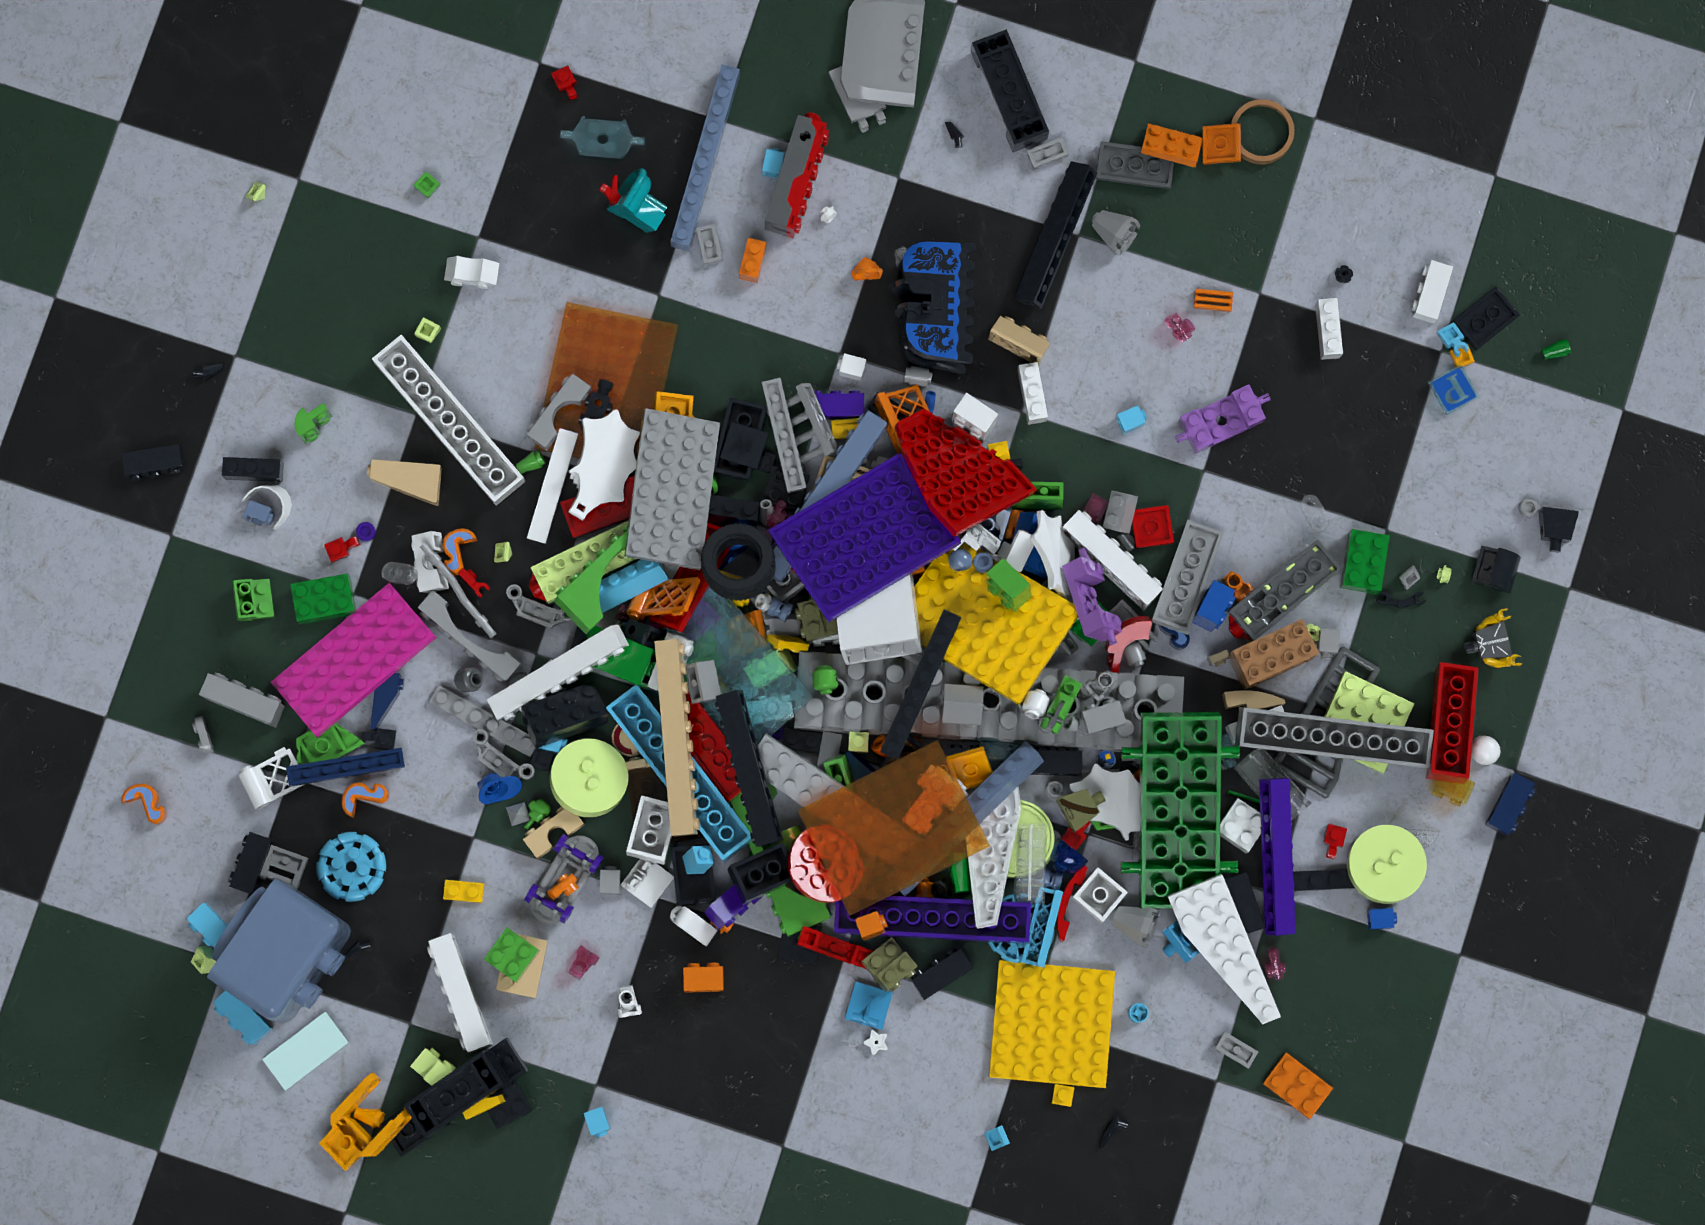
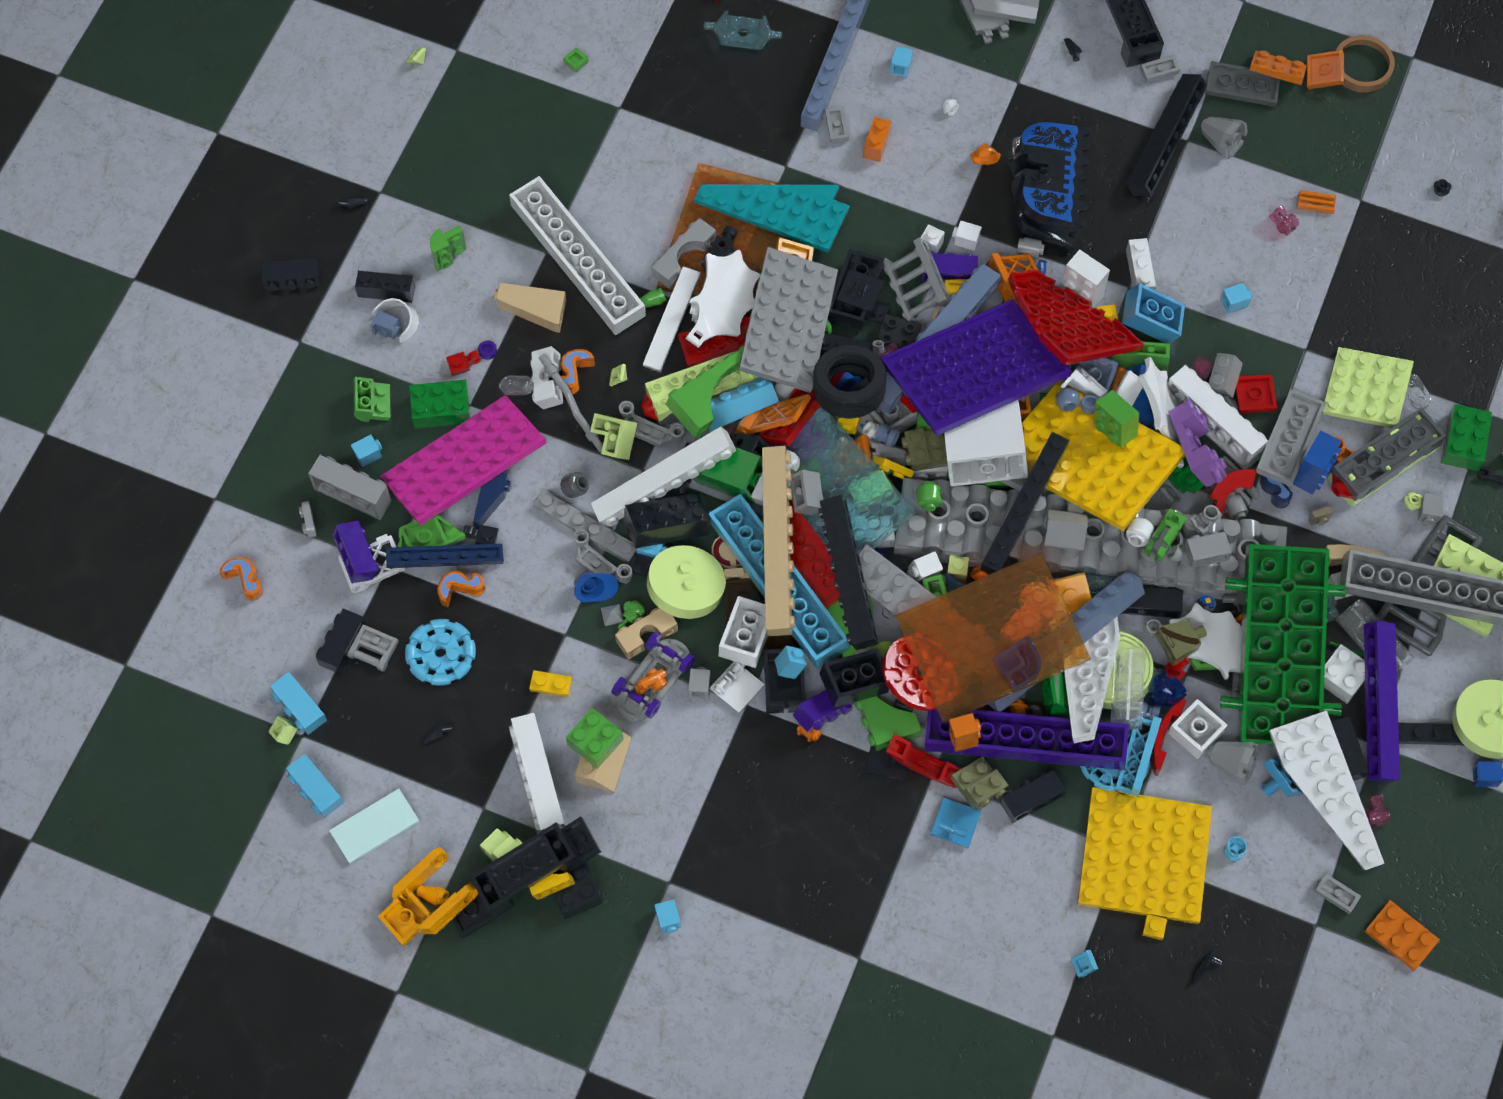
camera: 10 degrees right, 15 degrees down
(254, 655) = (367, 450): none -> medium azure brick
(255, 772) = (355, 552): none -> dark purple brick
(278, 951) = (358, 711): sand blue piece -> none
(427, 330) = (564, 179): yellowish green slope -> none
(469, 577) = (585, 399): red plate -> none
(471, 272) = (610, 132): white brick -> none
(502, 665) = (607, 474): light grey arch -> none
(507, 621) = (618, 435): none -> yellowish green brick
(585, 960) = (665, 759): clear pink plate -> none
(629, 1006) = (711, 805): white plate -> none
(634, 202) = (768, 81): teal piece -> none
(667, 352) = (793, 211): none -> teal wing
(693, 924) = (781, 726): white piece -> none
(703, 978) = (788, 780): orange brick -> none
(784, 435) = (899, 285): light grey plate -> none
(796, 175) = (923, 70): piece -> none
(815, 375) = (933, 237): none -> white brick
(824, 749) = (924, 567): none -> white brick
(871, 1042) = (960, 853): white plate -> none
(919, 862) = (1019, 663): none -> brick
(1019, 340) = (1127, 221): tan slope -> none
(1046, 449) = (1153, 313): none -> dark azure brick
(1241, 413) = (1343, 298): medium lavender brick -> none
(1265, 512) = (1367, 387): none -> yellowish green plate
(1273, 654) = (1377, 512): medium nougat brick -> none
(1329, 328) = (1429, 231): white brick -> none
(1334, 838) = (1438, 694): red plate -> none

